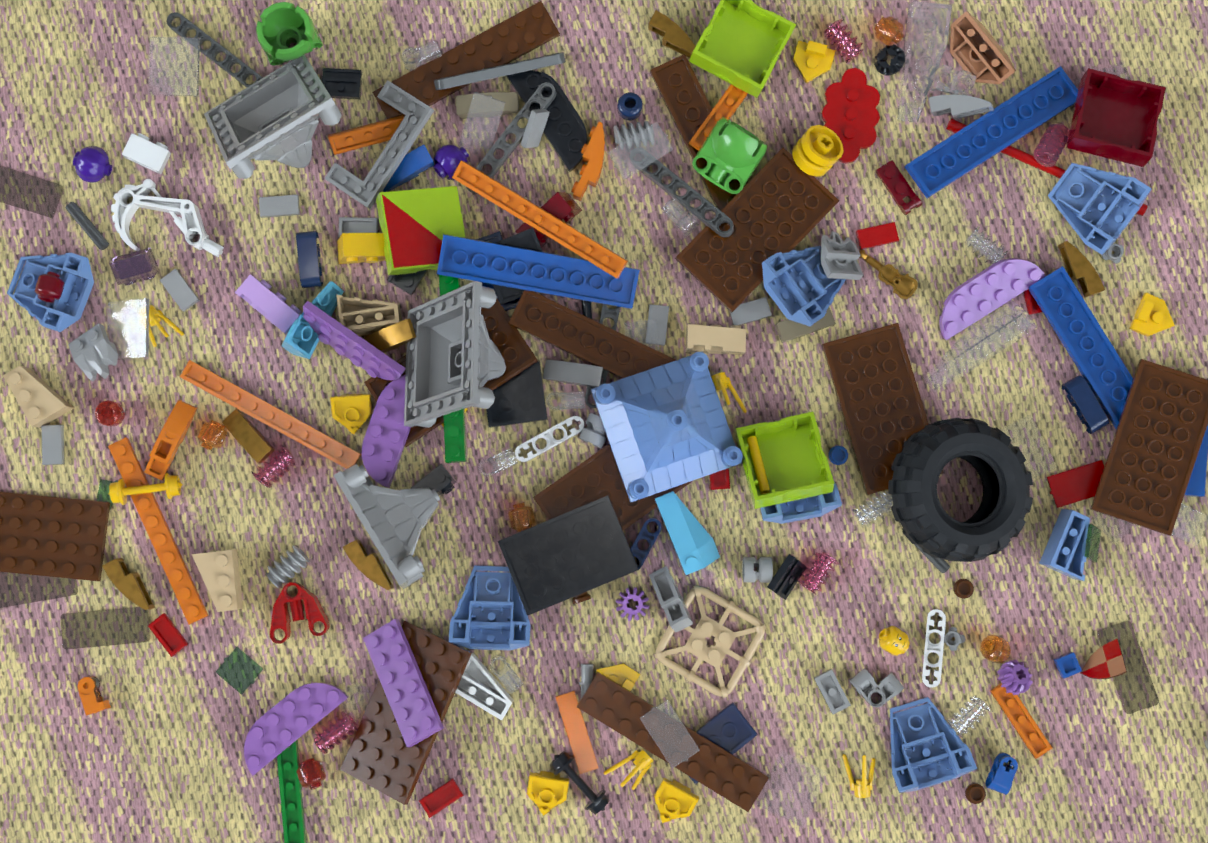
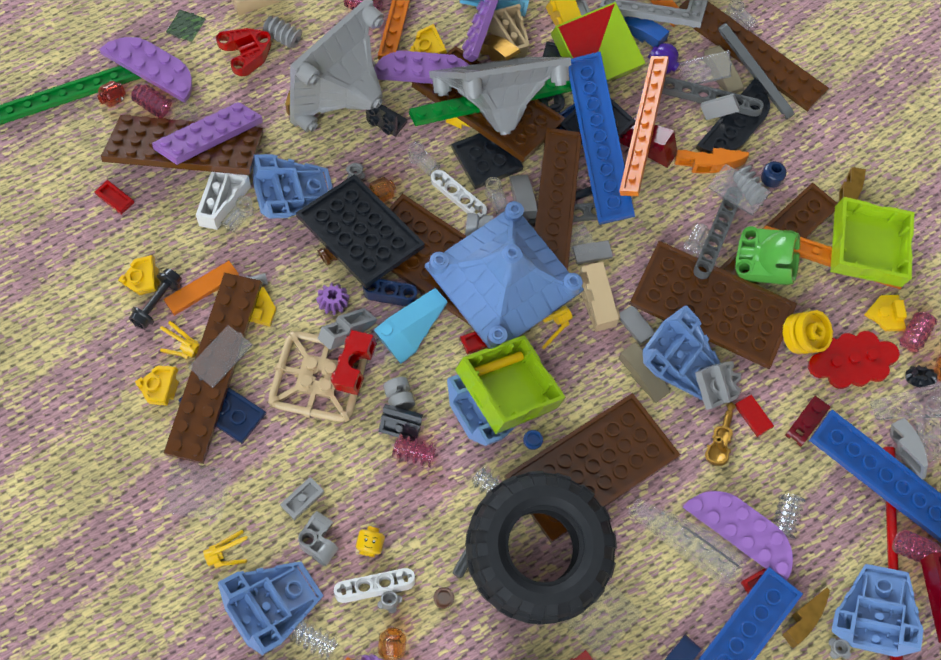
camera: 65 degrees right, 20 degrees down
(492, 533) = (355, 167): none -> light grey plate
(726, 616) = (357, 346): none -> red arch

